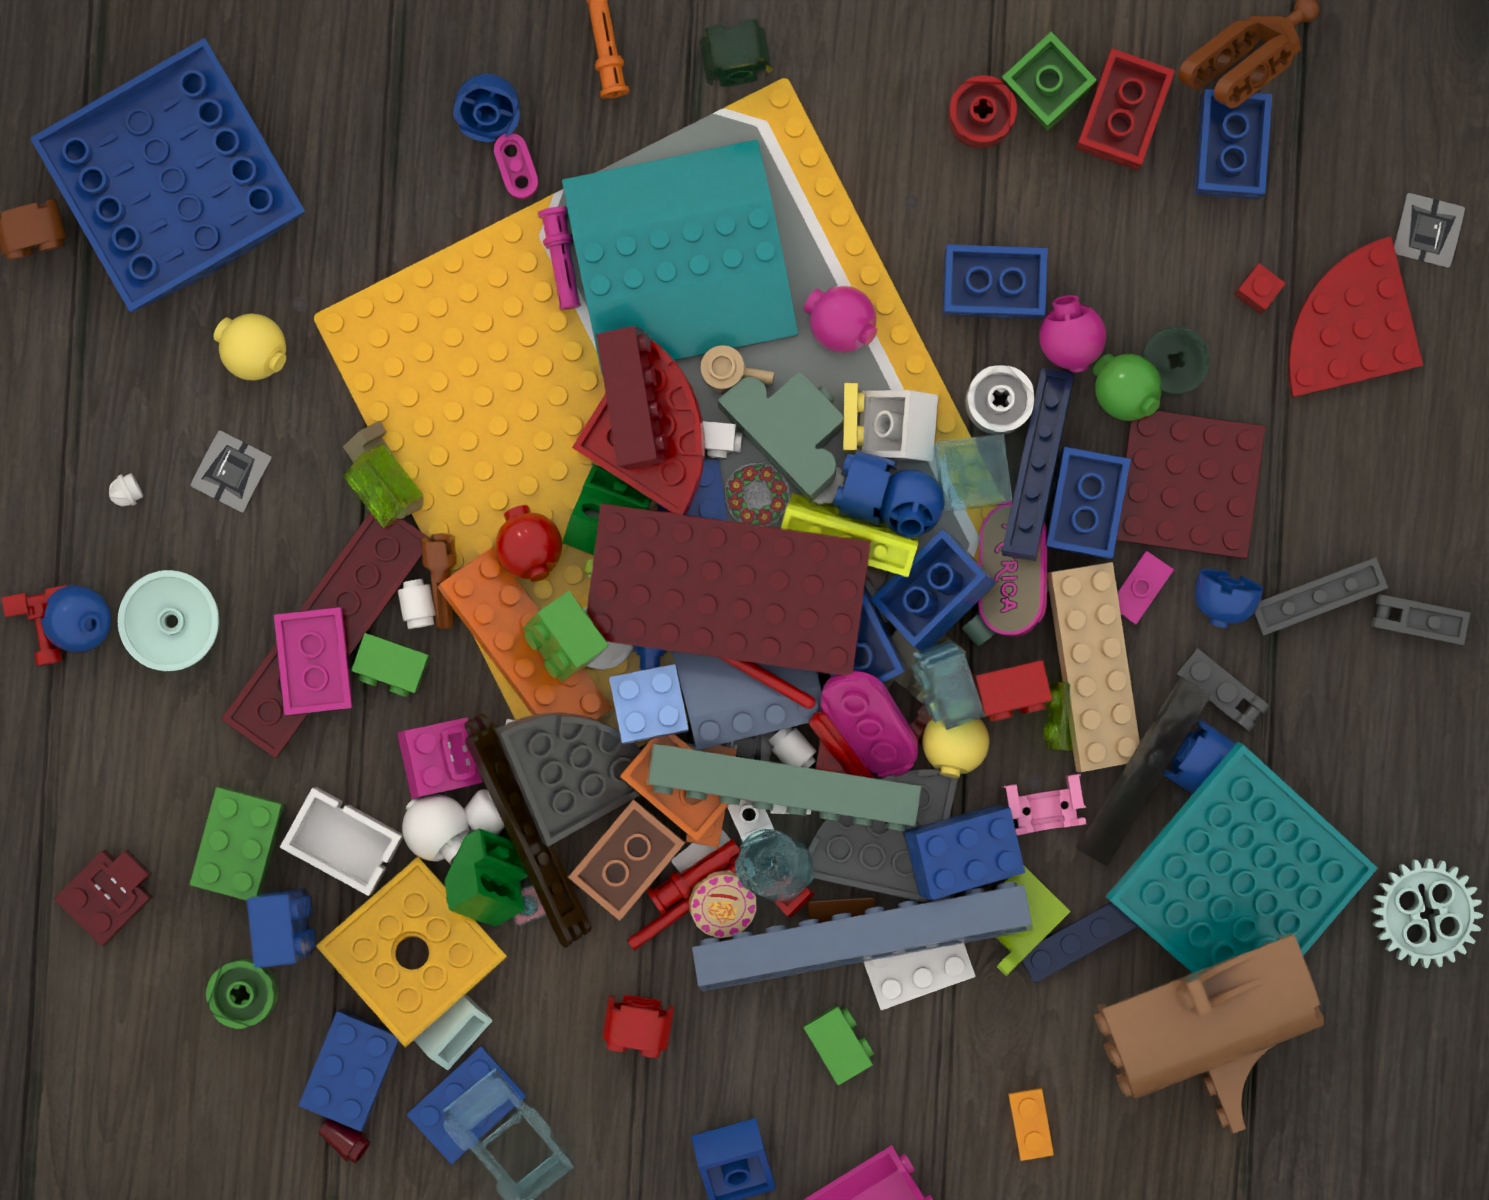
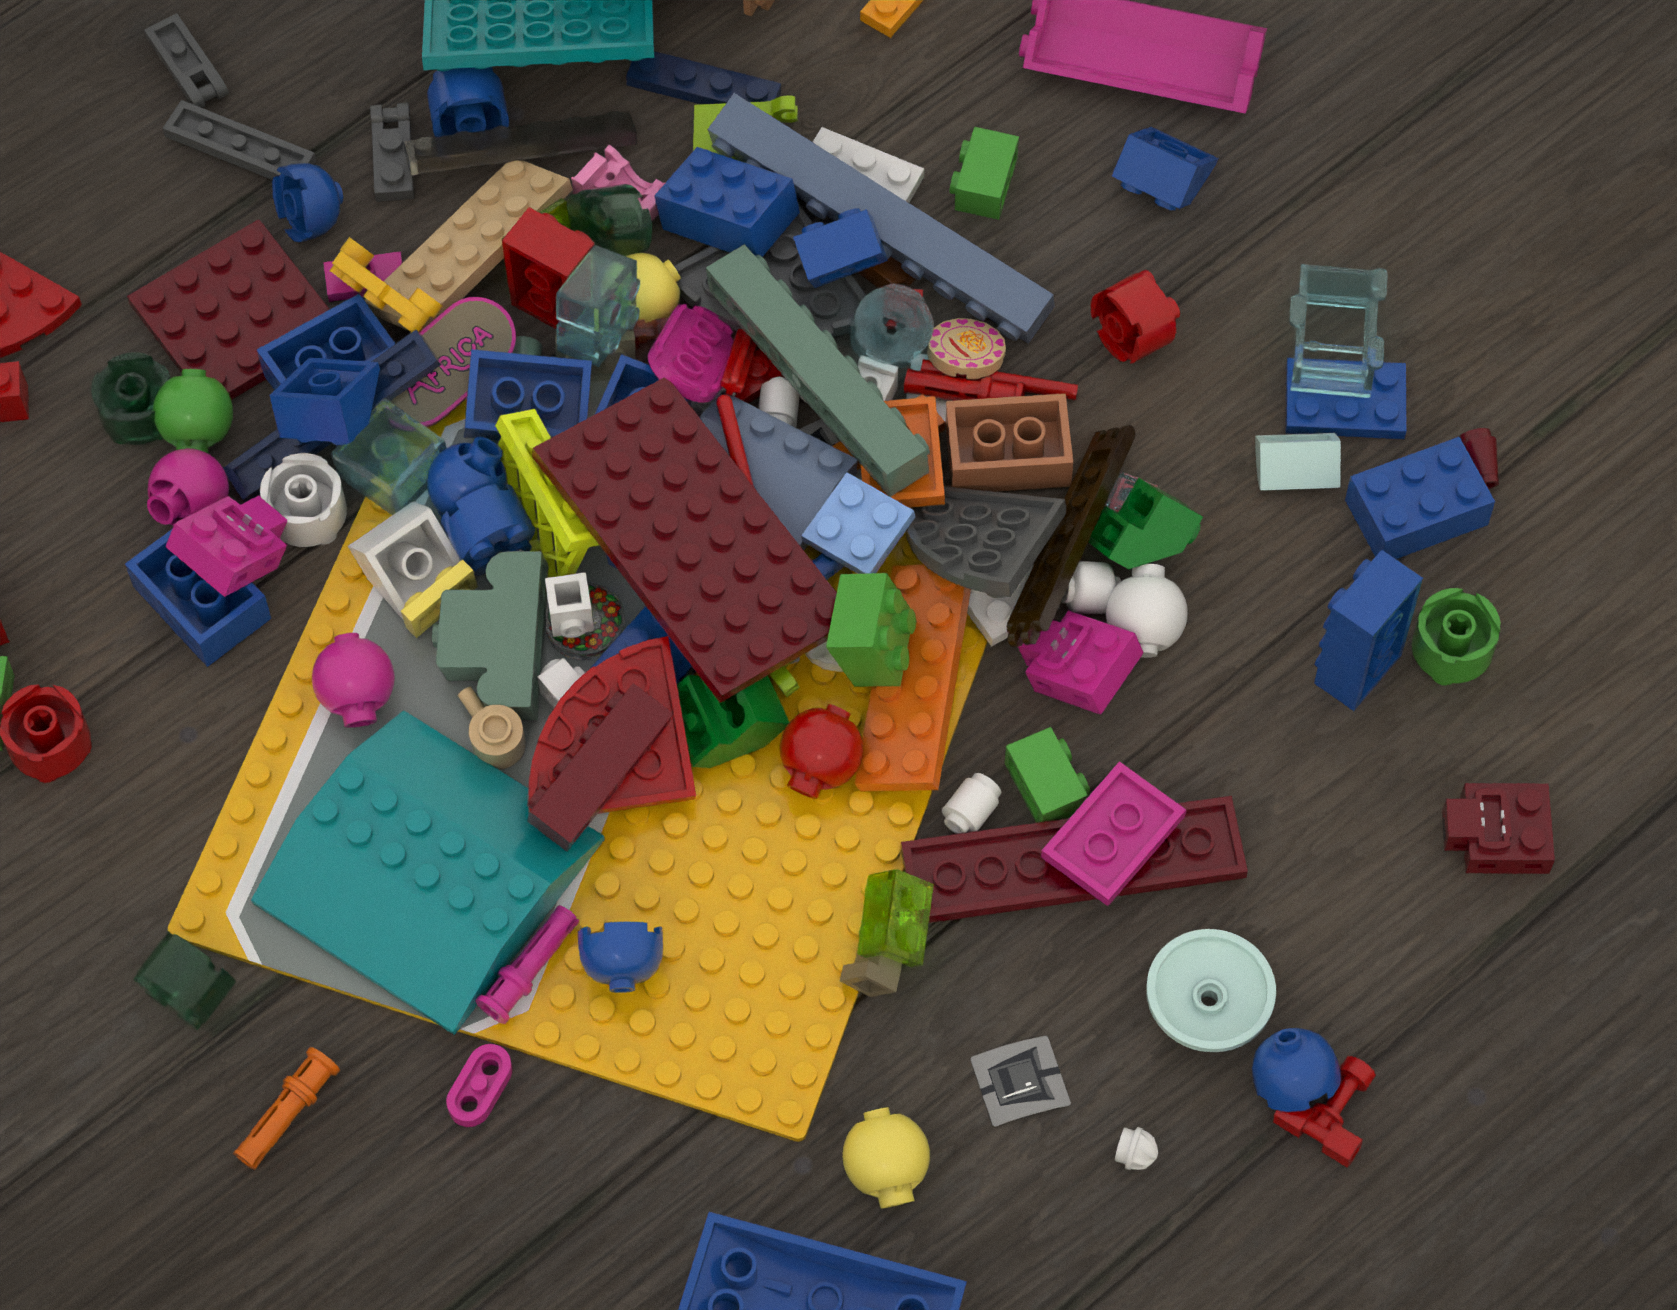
camera: 135 degrees left, 25 degrees down
(237, 843) = (1337, 758): bright green brick -> none
(342, 841) = (1241, 673): white piece -> none
(367, 944) = (1245, 493): yellow piece -> none
(439, 558) = (912, 813): dark orange piece -> none
(487, 107) = (445, 1152): blue cylinder -> none
(508, 307) = (621, 954): none -> blue cylinder
(761, 483) = (569, 605): none -> white brick
(856, 884) = (840, 247): none -> blue brick
(995, 318) = (230, 542): none -> dark pink piece
(1018, 760) = (612, 218): none -> clear green brick
(1039, 460) = (326, 400): none -> blue slope
(1103, 567) = (351, 268): none -> yellow plate

